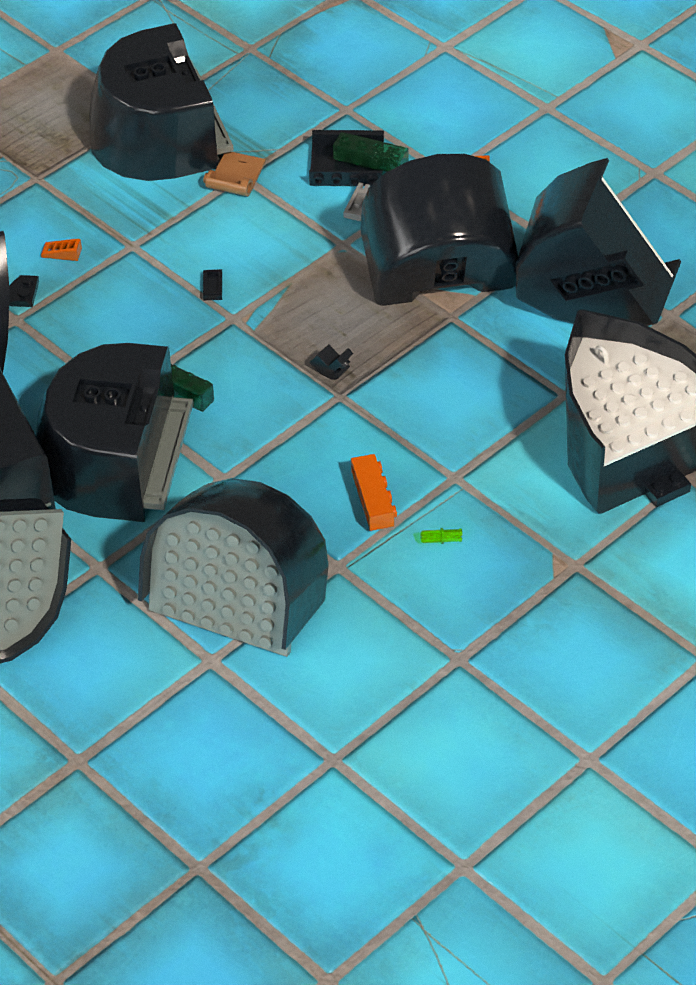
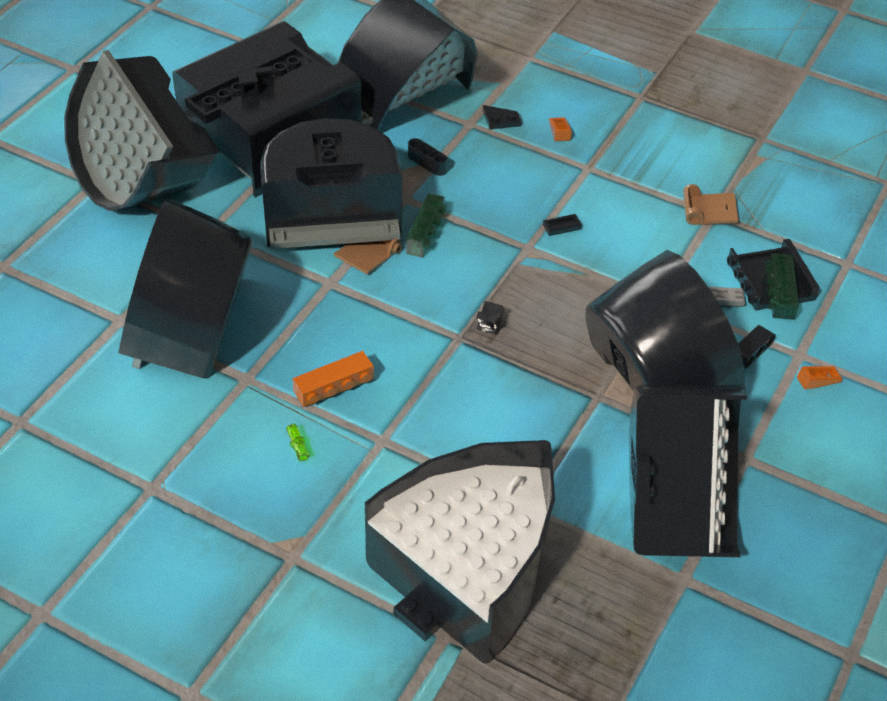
camera: 70 degrees right, 0 degrees up
(52, 362) = (427, 157): none -> black beam
(154, 110) = (746, 124): black piece -> none
(198, 440) = (368, 255): none -> medium nougat door

